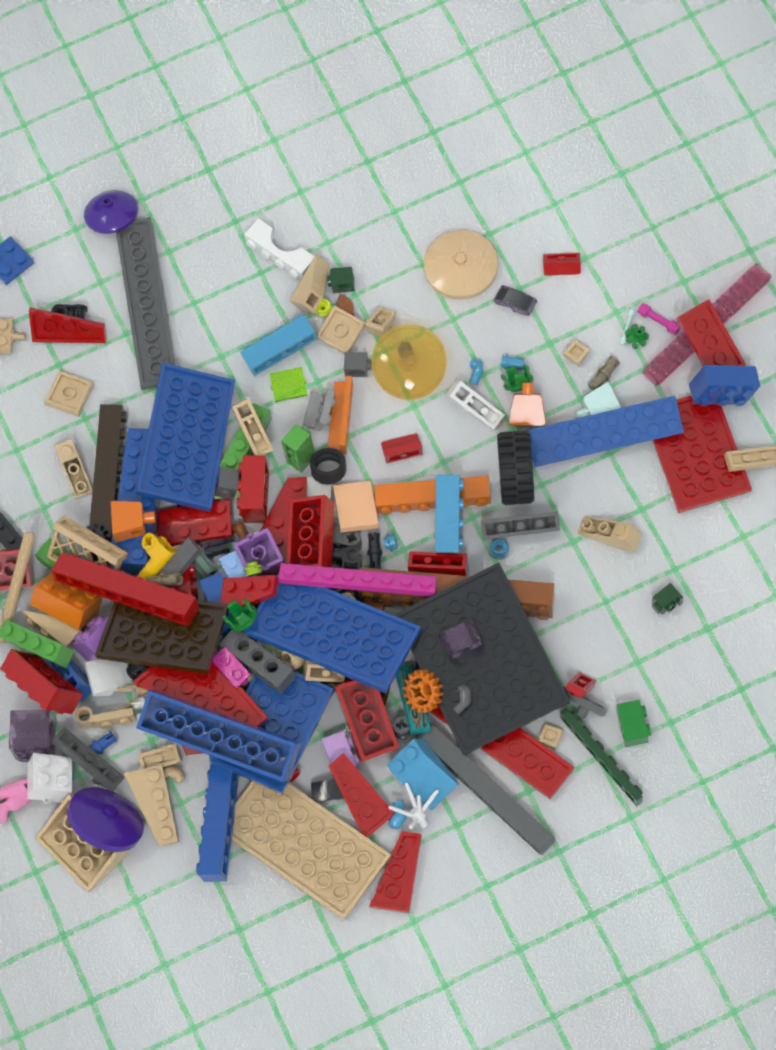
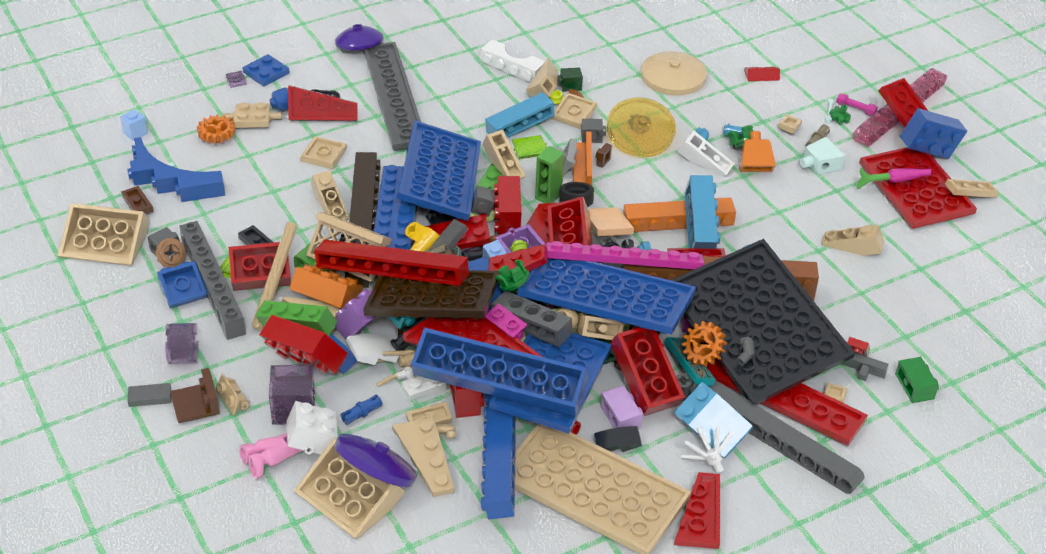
camera: 15 degrees left, 25 degrees down
(21, 315) = (279, 99): none -> blue head
(87, 759) = (340, 404): dark grey hinge -> none
(105, 720) = (369, 385): tan plate -> none
(129, 520) = (392, 215): orange torso -> none
(362, 800) = (650, 441): red wing -> none
(364, 403) = (603, 155): none -> reddish brown plate
(380, 321) = (606, 105): tan slope -> none
(397, 819) = (692, 462): dark azure arm -> none
(401, 448) = (644, 186): red panel -> none
(461, 638) = (739, 293): clear purple brick -> none
(515, 467) = (759, 184): black tyre -> none
(516, 300) = (731, 93): slope -> none
(520, 525) = (774, 231): dark grey brick -> none
(596, 749) = (893, 407): dark green plate -> none
(605, 431) = (829, 168): blue plate -> none
(666, 599) = (922, 285): dark green brick -> none
(670, 443) = (893, 176): none -> piece

